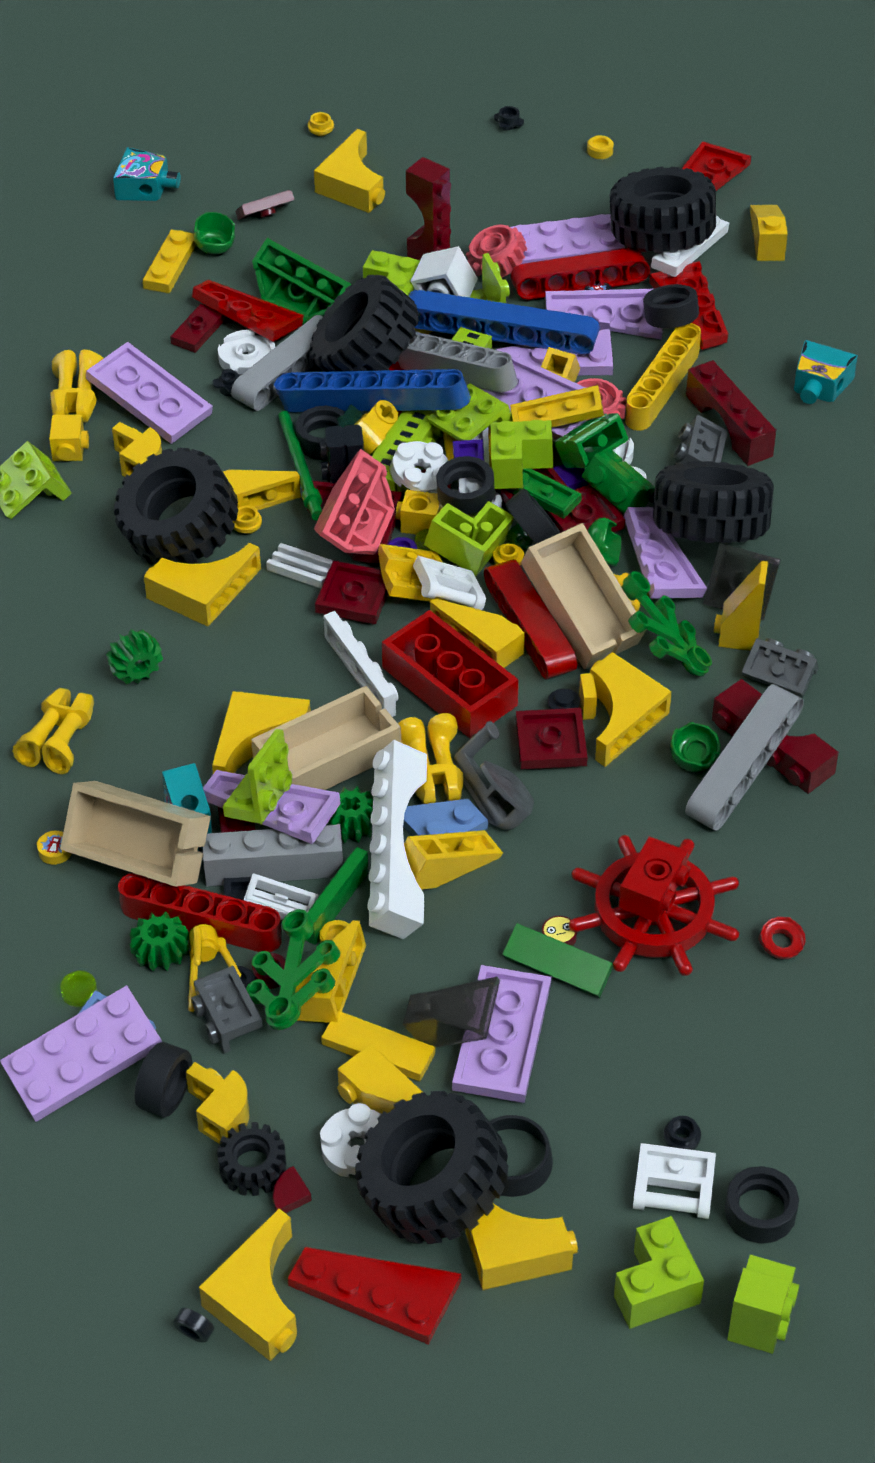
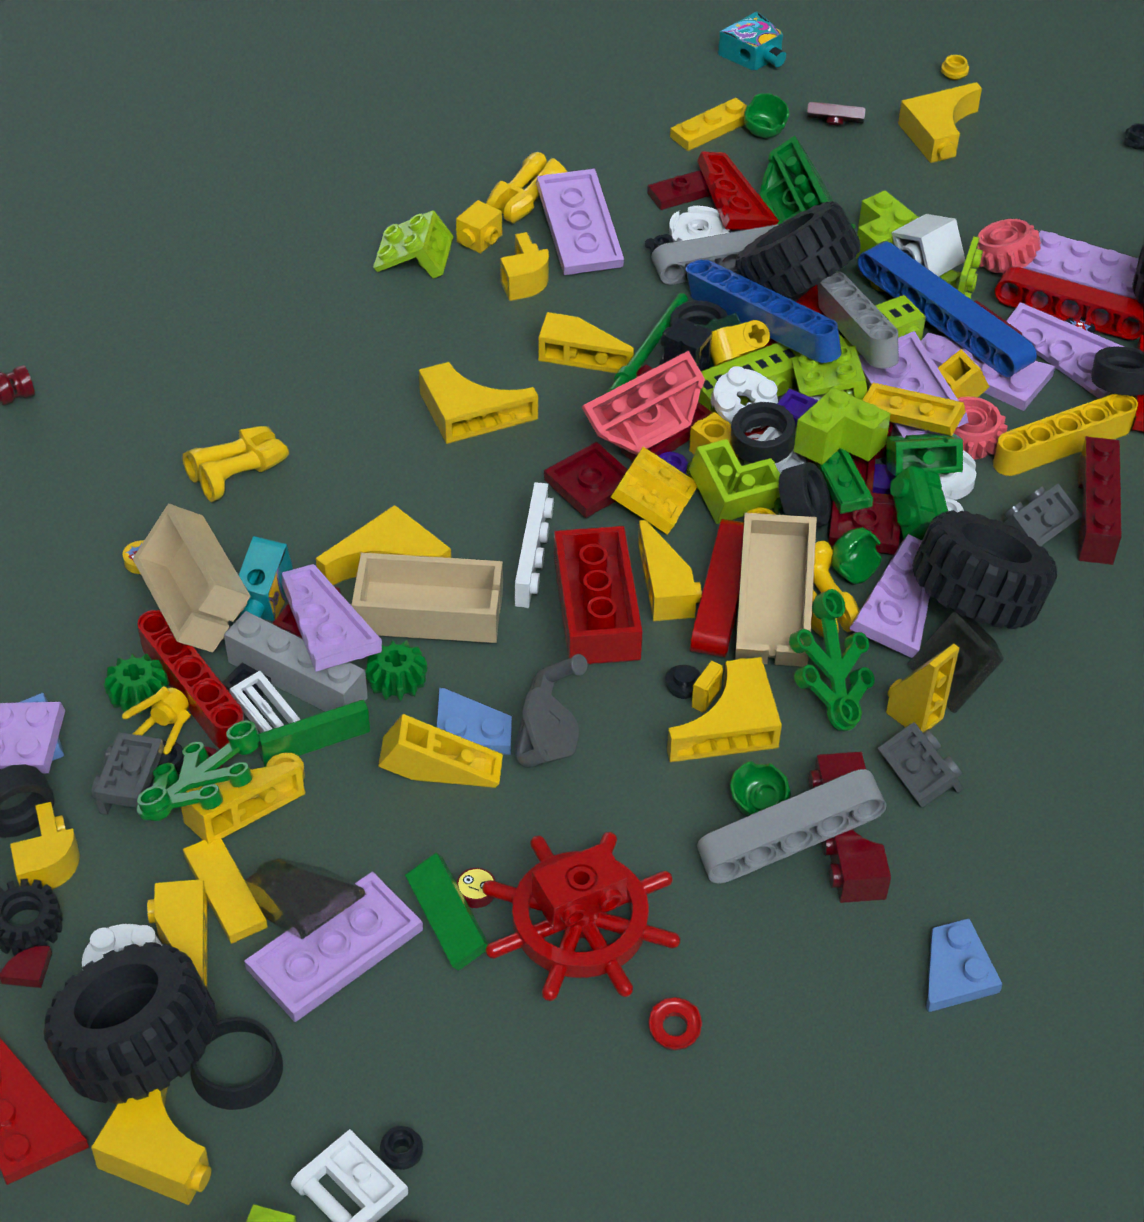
camera: 35 degrees right, 0 degrees up
(78, 988) = (44, 681): clear neon green tile -> none
(134, 656) = (348, 432): green gear -> none
(158, 485) = (495, 324): black tyre -> none
(247, 520) = (561, 369): yellow plate -> none
(263, 784) = (317, 588): lime bracket -> none
(303, 562) = (573, 425): white tile -> none
(395, 896) = (357, 762): white arch -> none
(430, 189) = (961, 154): dark red arch -> none
(440, 732) = (516, 634): yellow piece -> none
(449, 583) = (680, 508): white plate -> none
(551, 738) = (638, 706): dark red plate -> none

